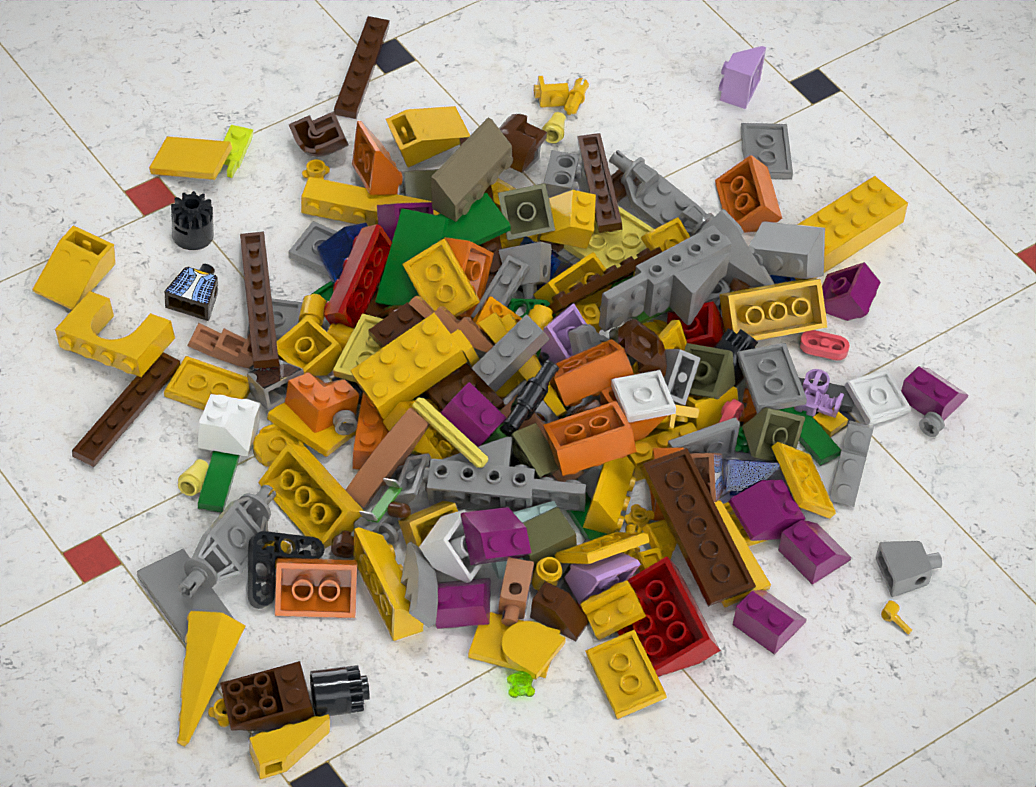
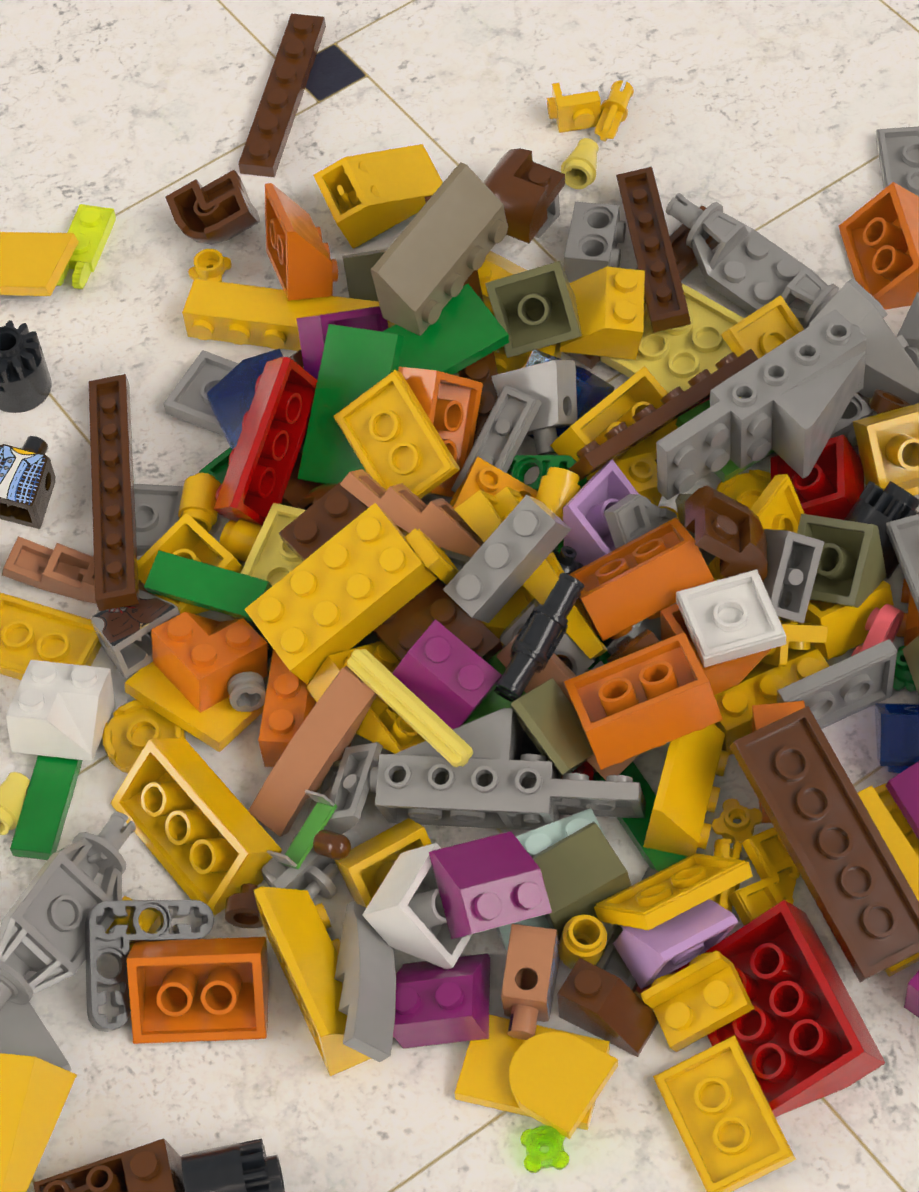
camera: 10 degrees right, 5 degrees up
(321, 358) = (204, 585): none -> green tile
(711, 470) = (852, 738): nougat torso -> none
(742, 76) = (873, 54): lavender slope -> none

